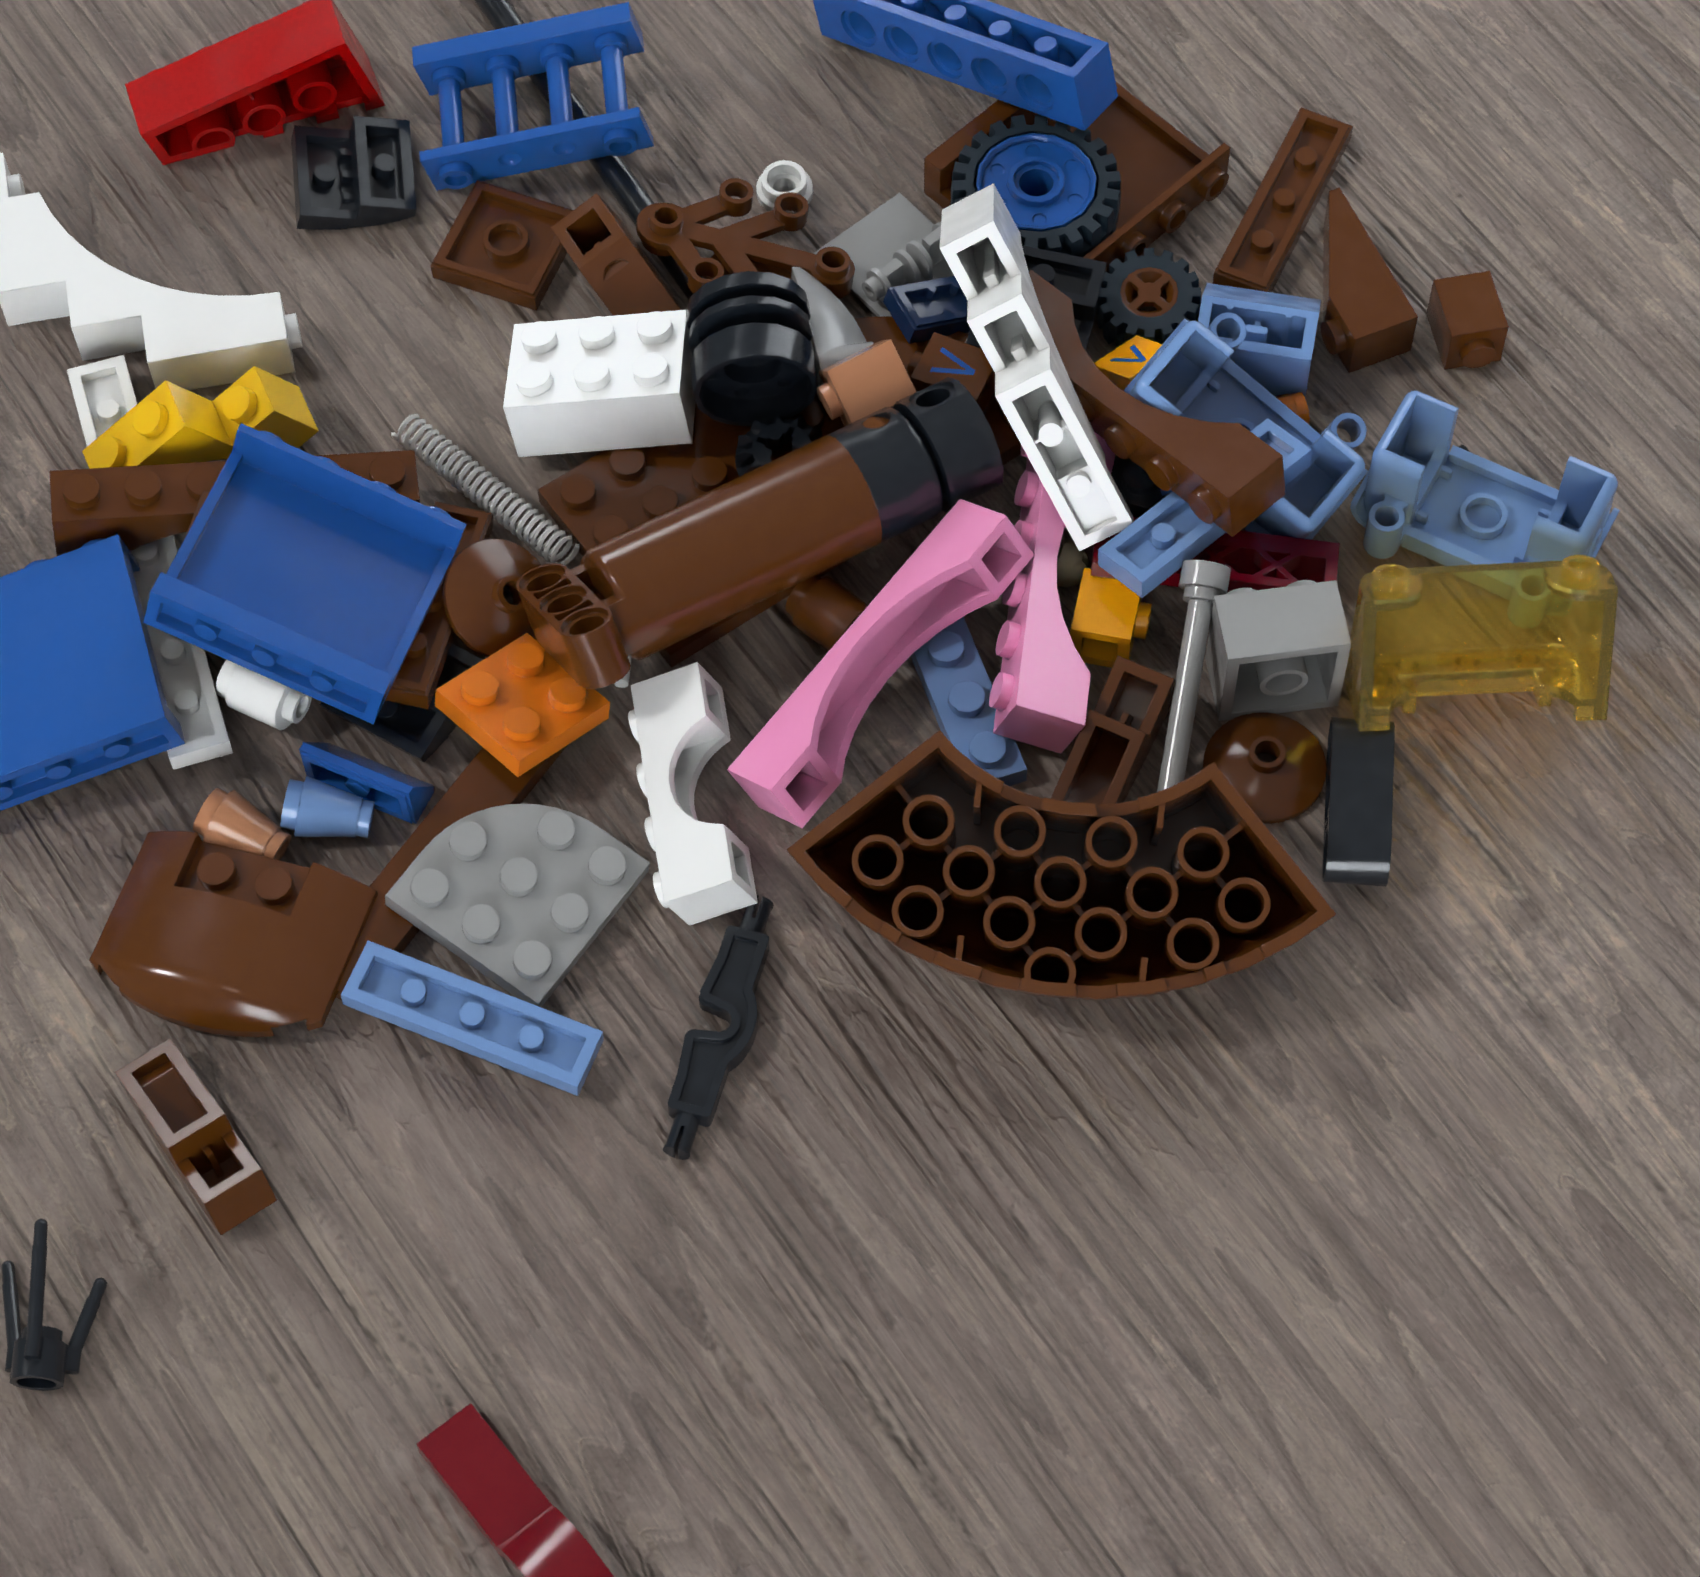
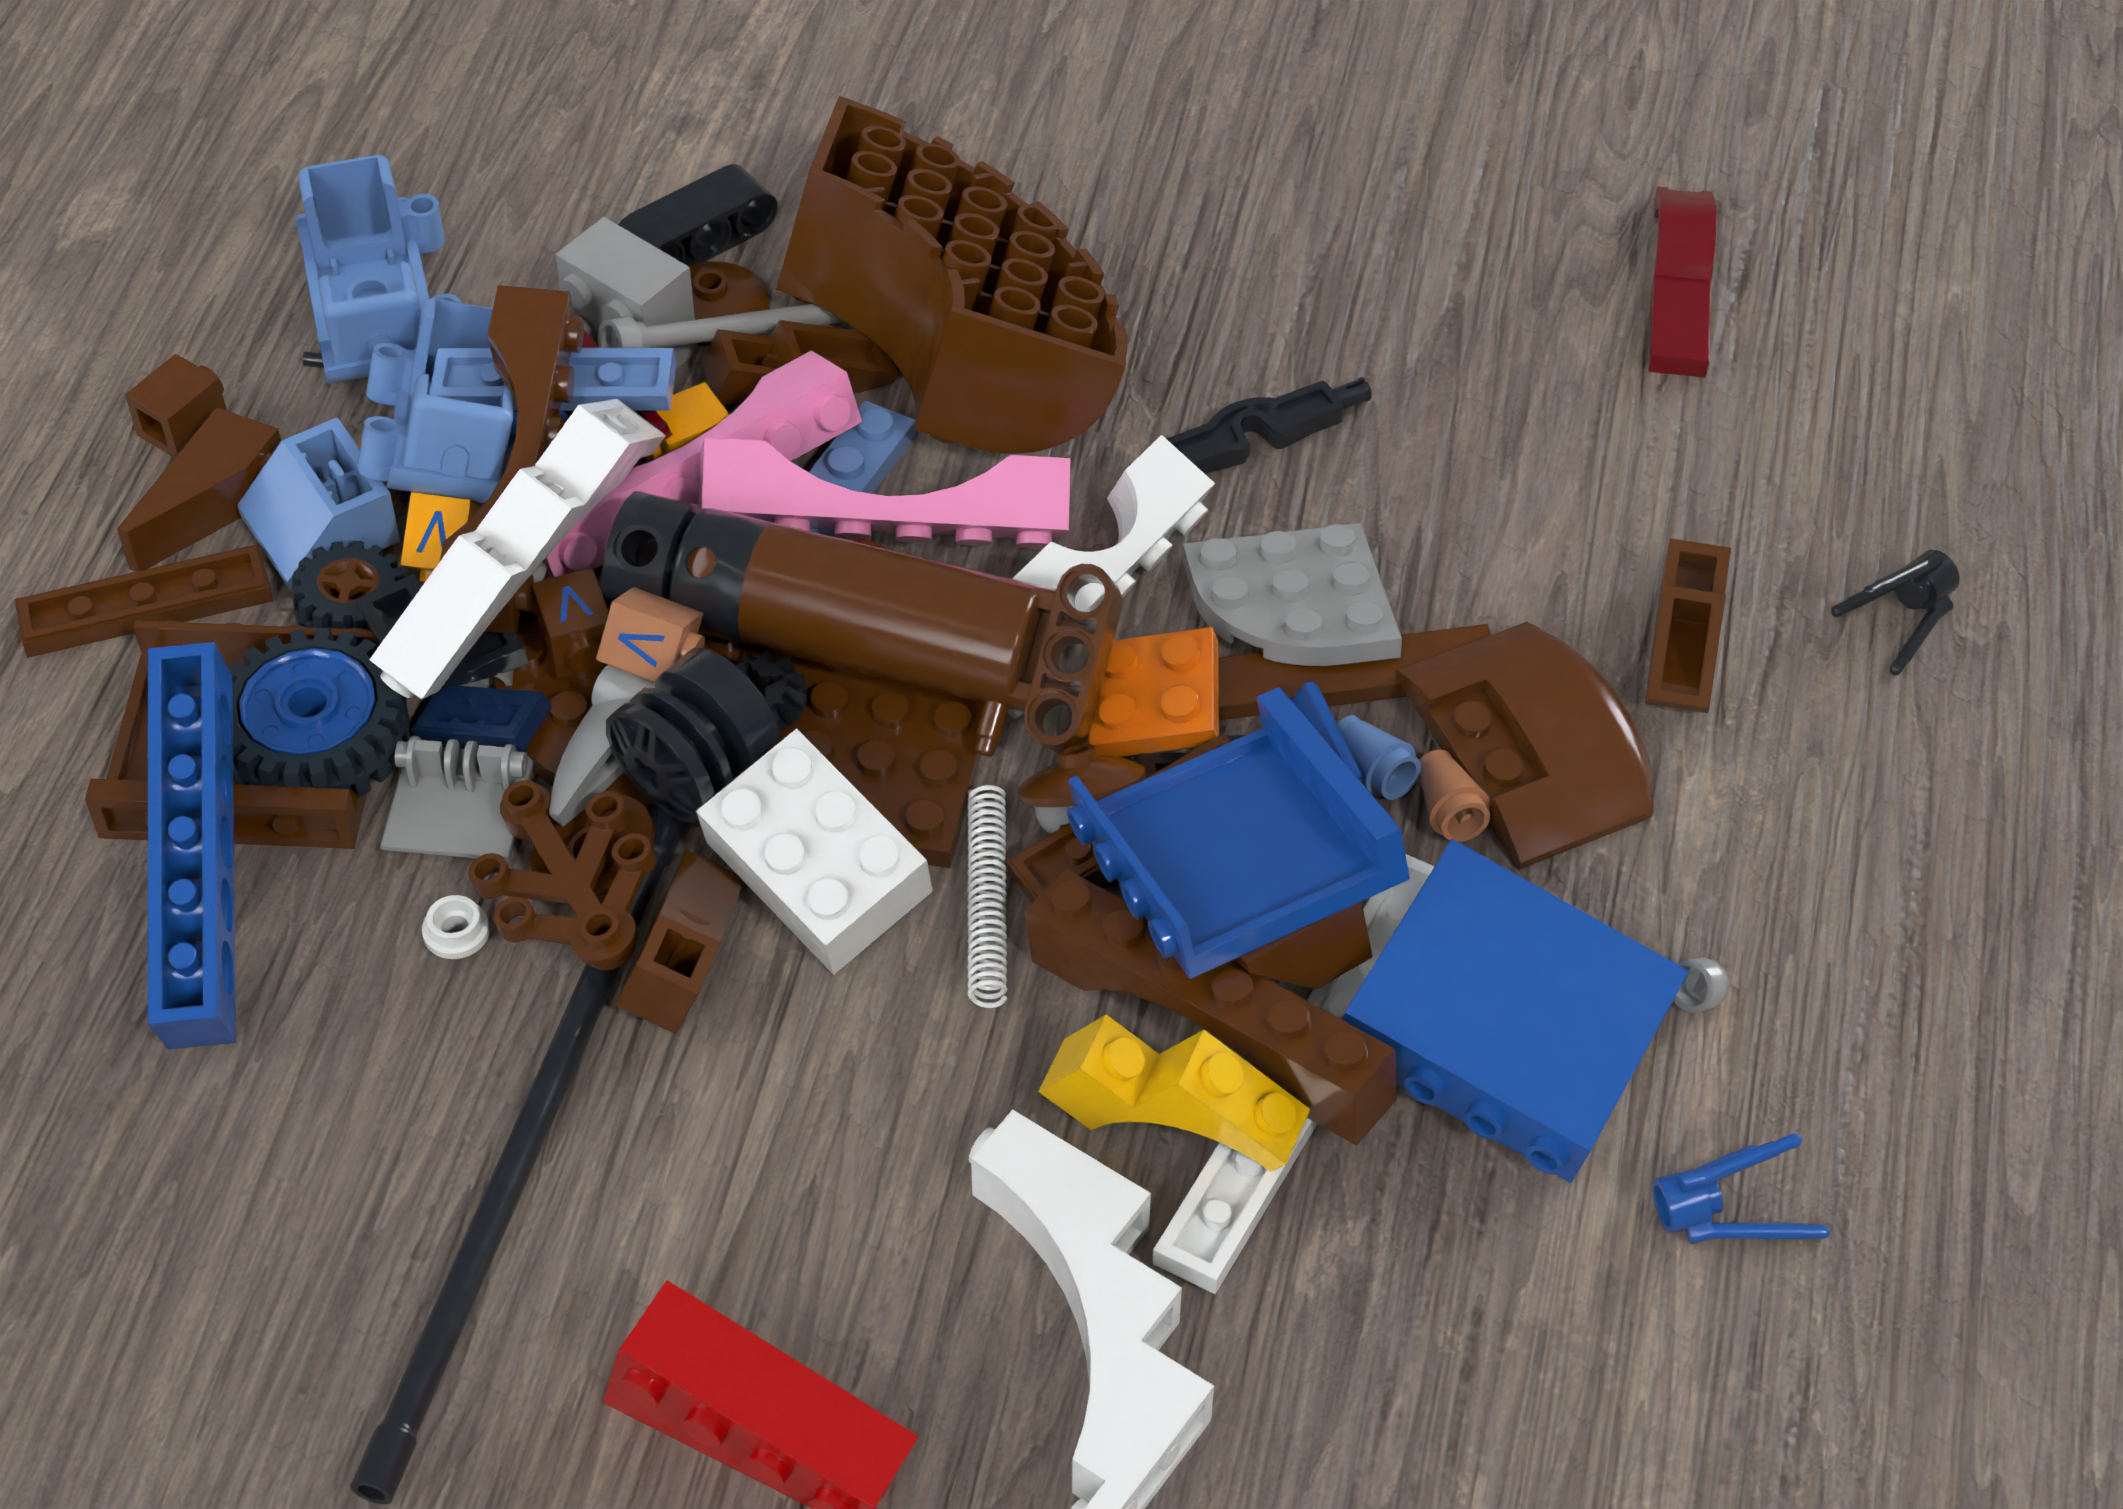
camera: 135 degrees left, 10 degrees down
(353, 174) = (766, 1267): black slope -> none
(472, 1018) = (1419, 543): medium blue plate -> none
(502, 246) = (719, 1090): reddish brown tile -> none
(522, 51) = (532, 1210): blue fence -> none
(1480, 633) = (479, 188): clear yellow windscreen -> none

